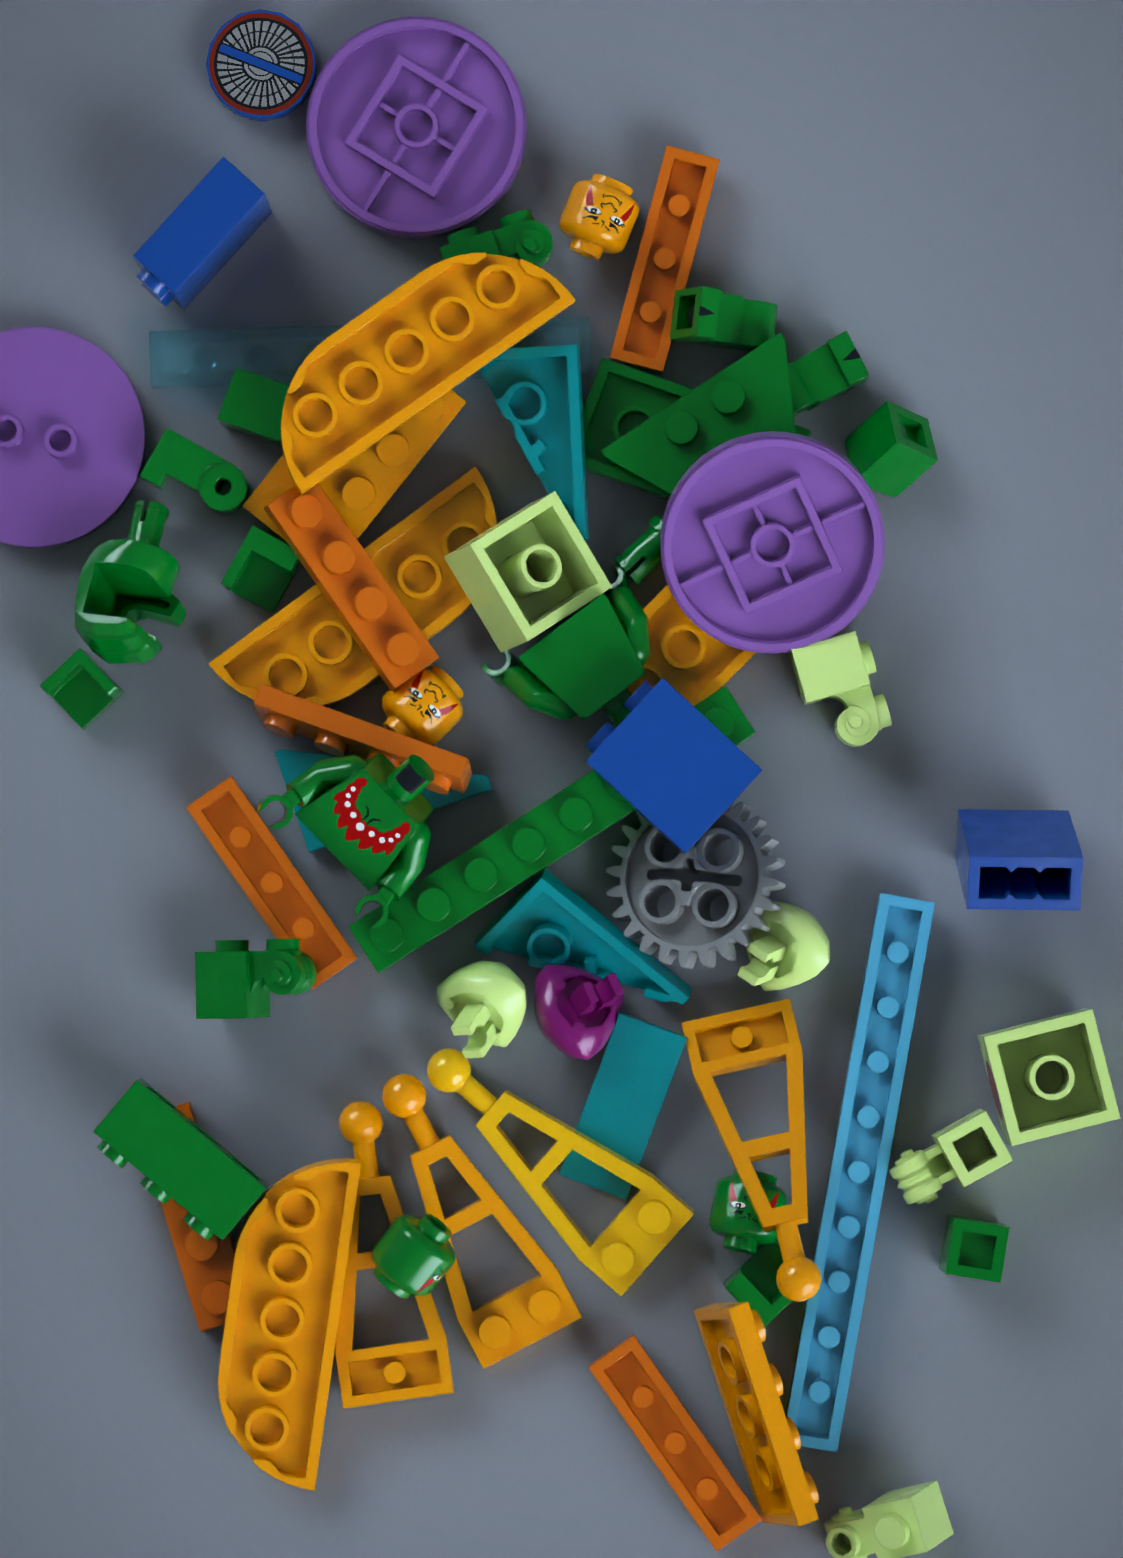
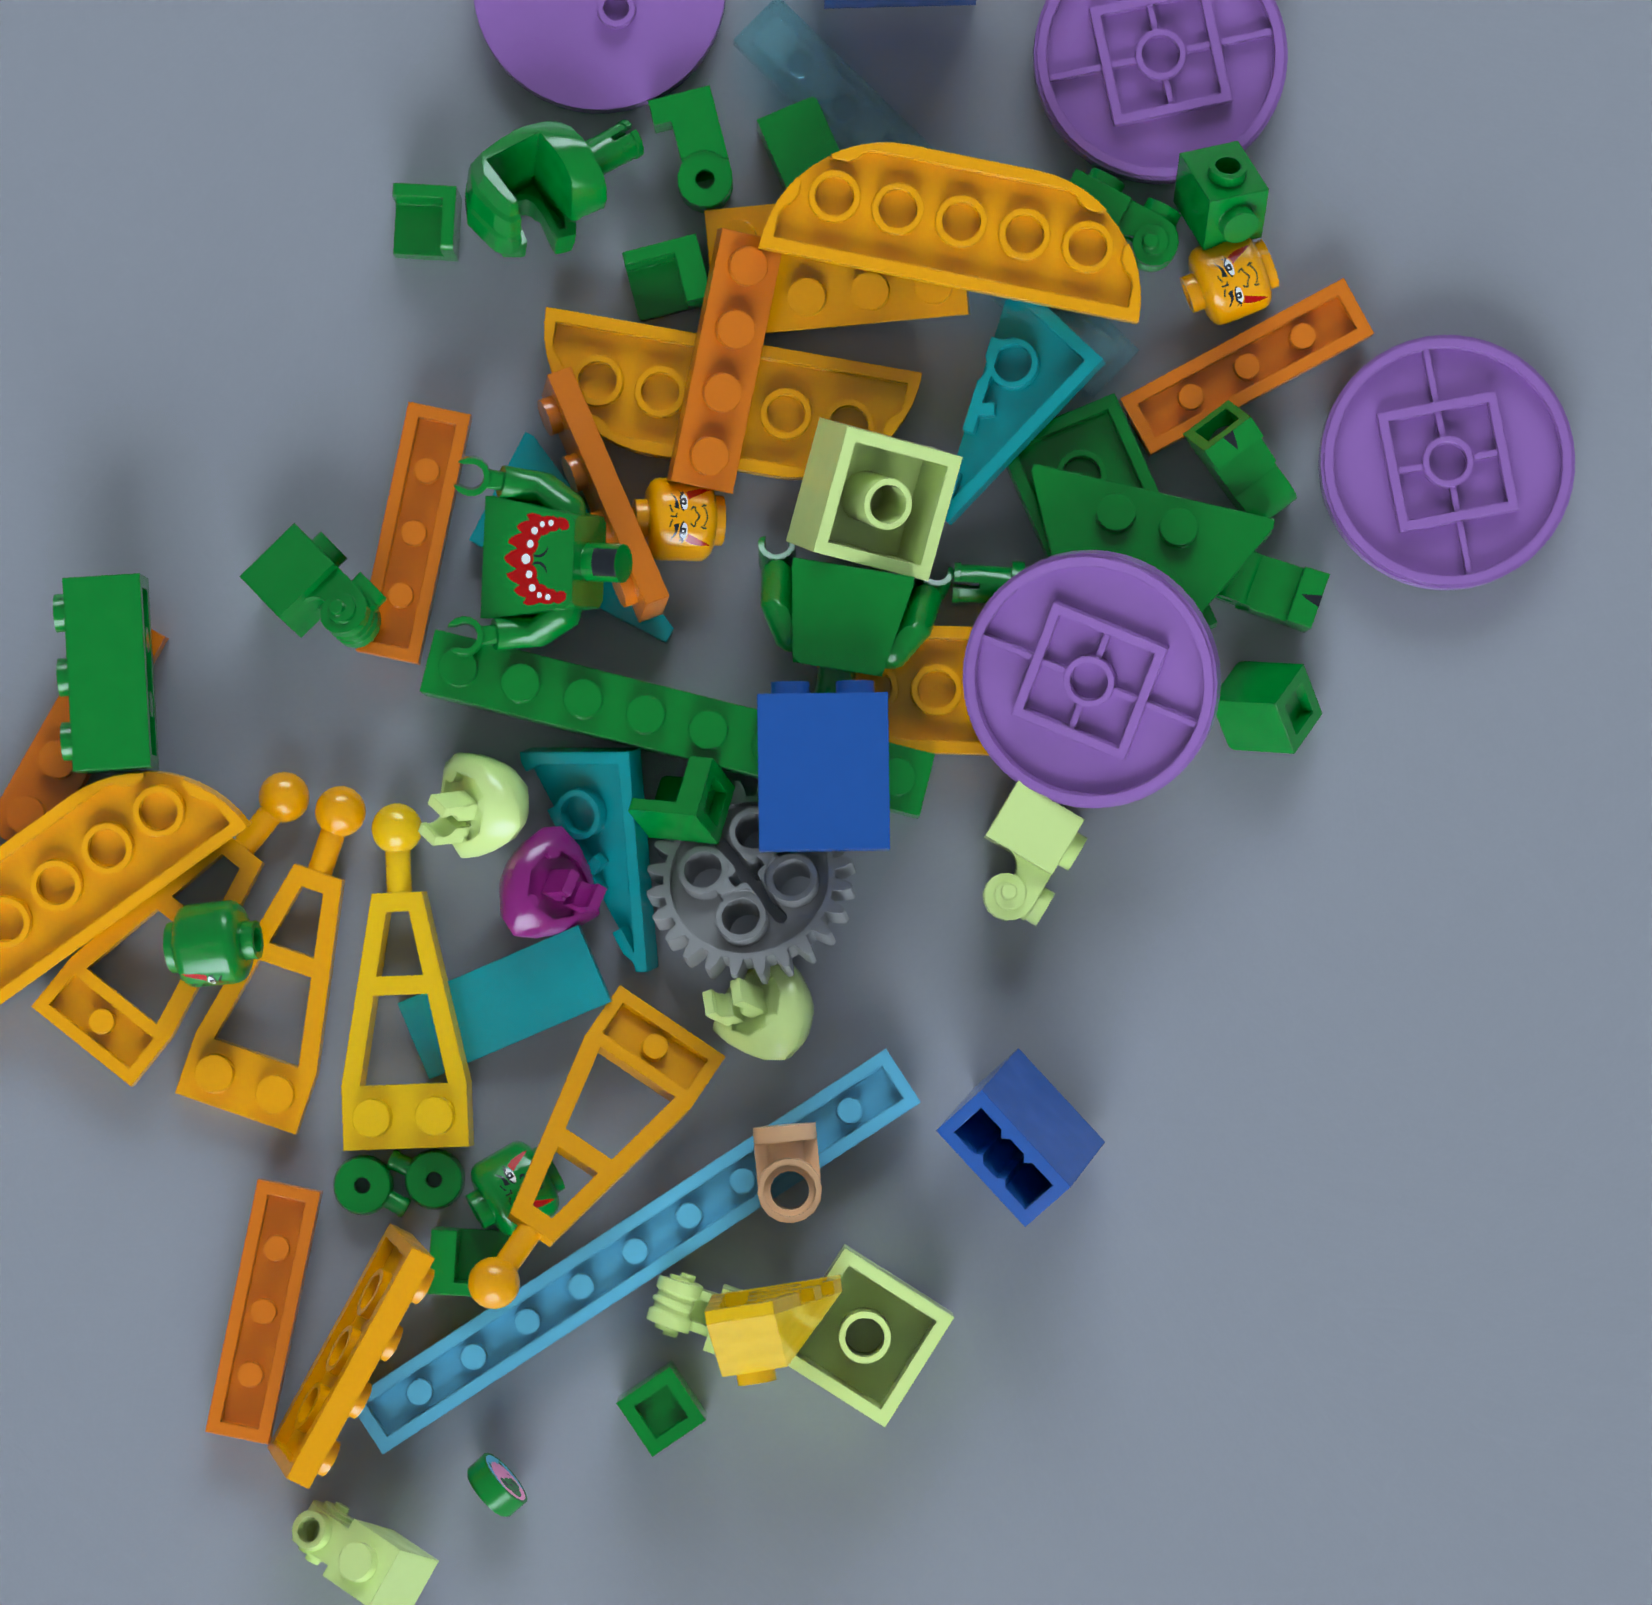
camera: 45 degrees right, 0 degrees up
(542, 172) = (1220, 194): none -> green brick
(610, 872) = (687, 806): none -> green panel
(669, 1299) = (380, 1192): none -> green piece
(679, 1265) = (416, 1177): none -> green piece
(843, 191) = (1446, 462): none -> medium lavender plate
(886, 1015) = (786, 1149): none -> light nougat piece
(923, 1399) = (496, 1485): none -> green tile
(989, 1129) = (766, 1325): none -> yellow wedge

